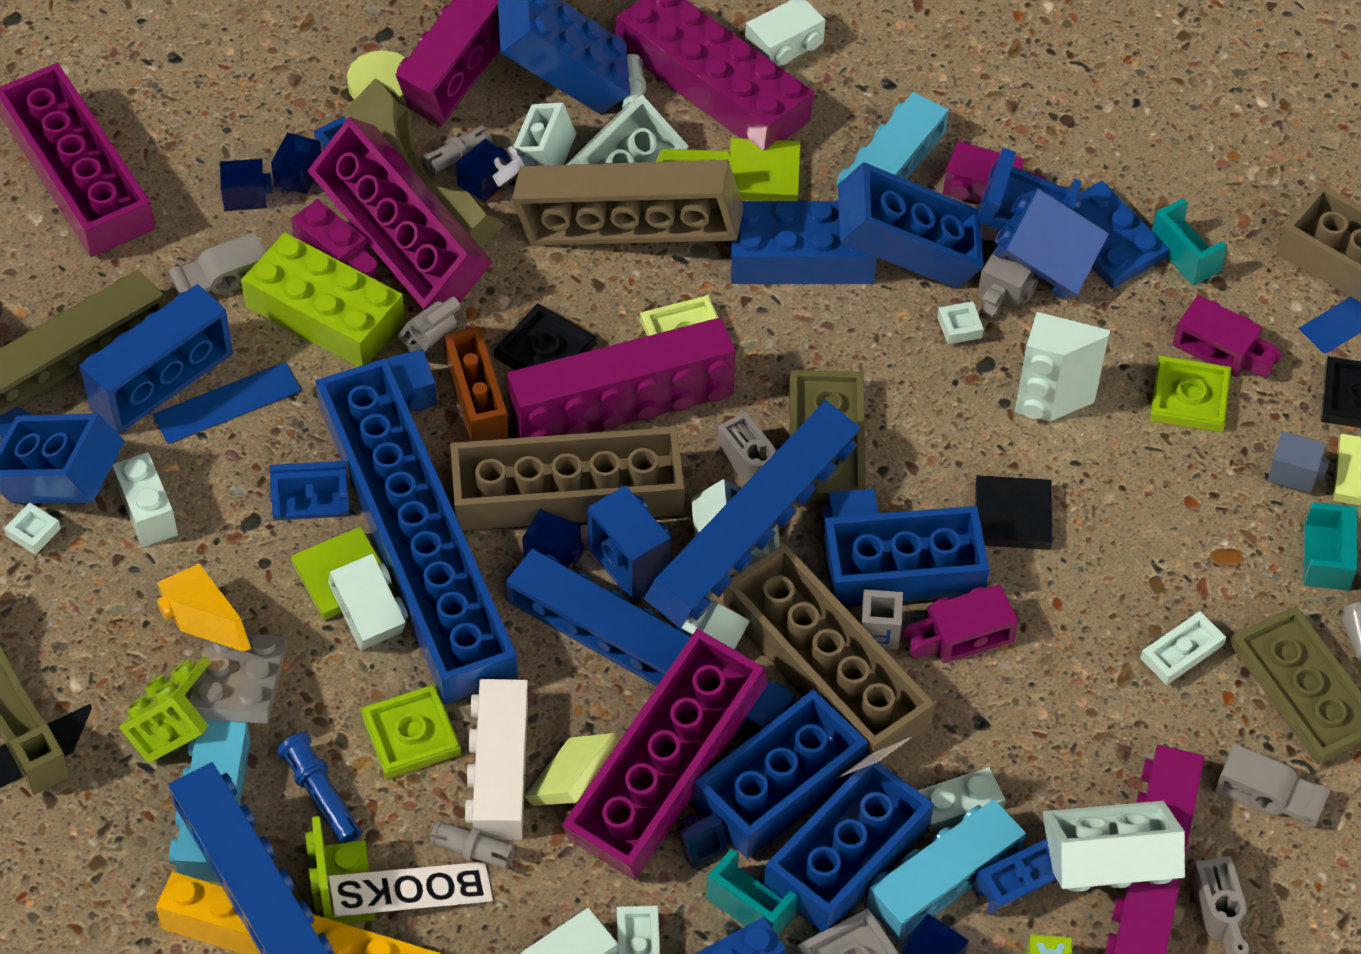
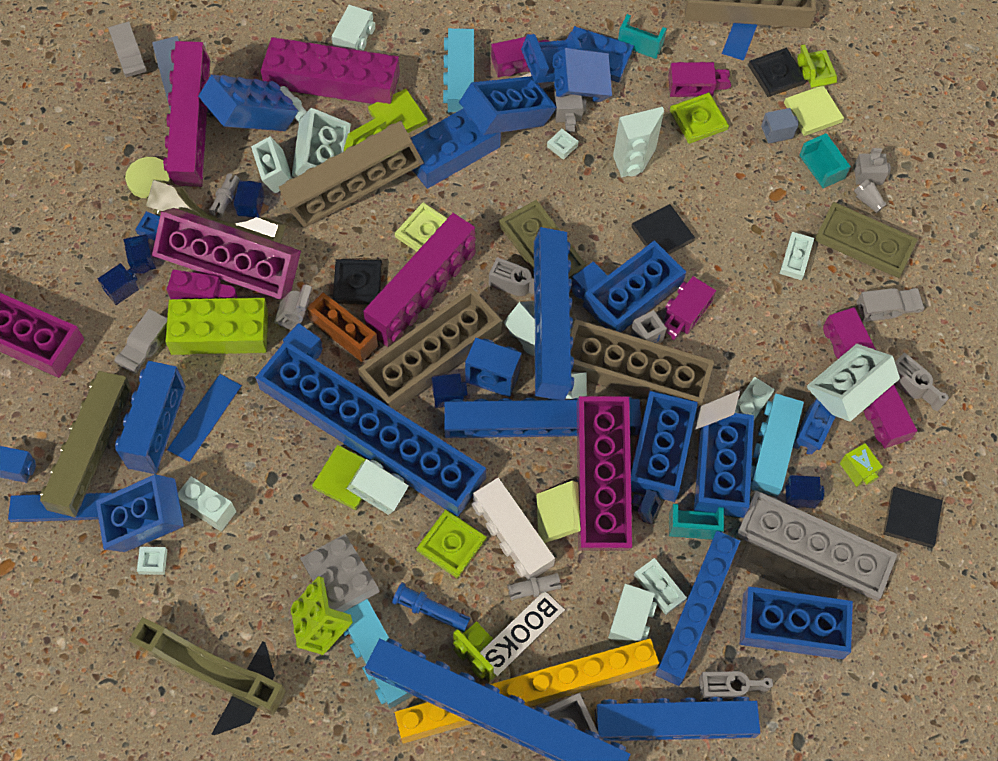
camera: 35 degrees left, 10 degrees up
(201, 608) = (291, 548): yellow slope -> none
(309, 490) = (294, 441): blue hinge -> none
(508, 173) = (273, 191): tile -> none

